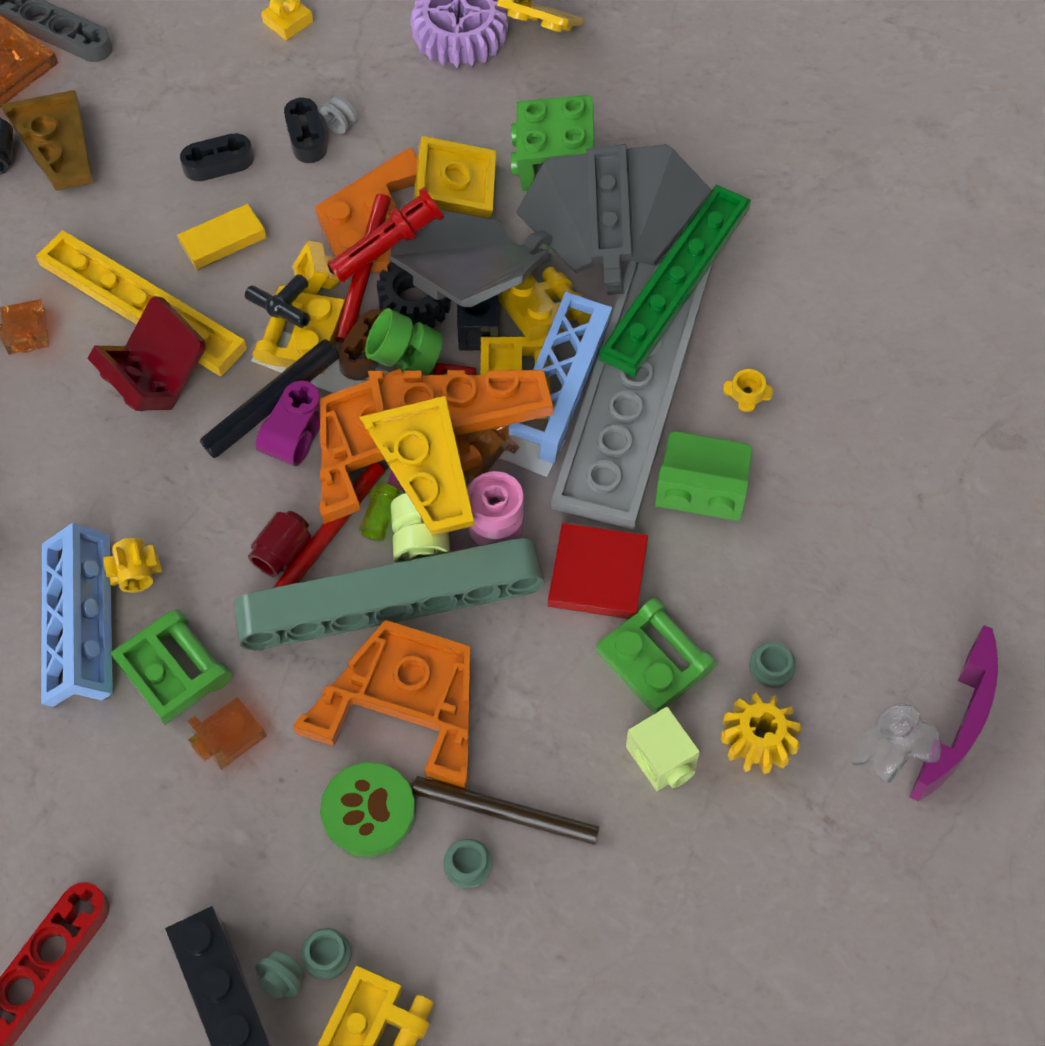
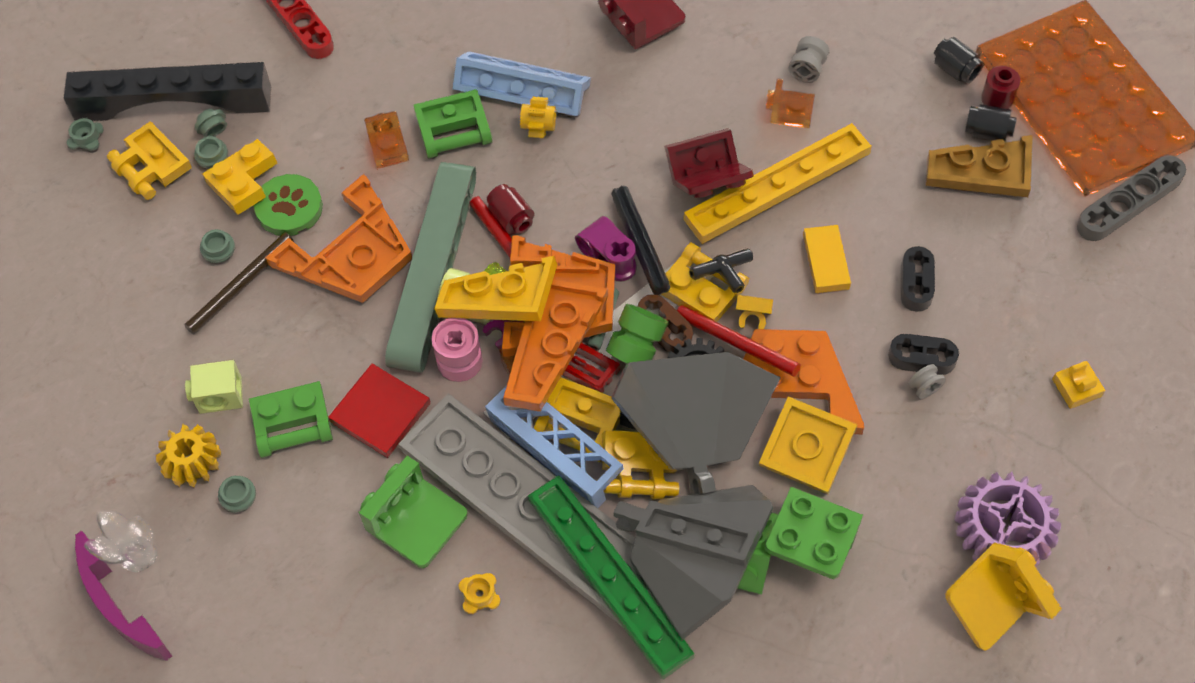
camera: 115 degrees right, 0 degrees up
(355, 900) = (235, 176): none -> yellow plate
(402, 225) = (736, 322): red pin -> none

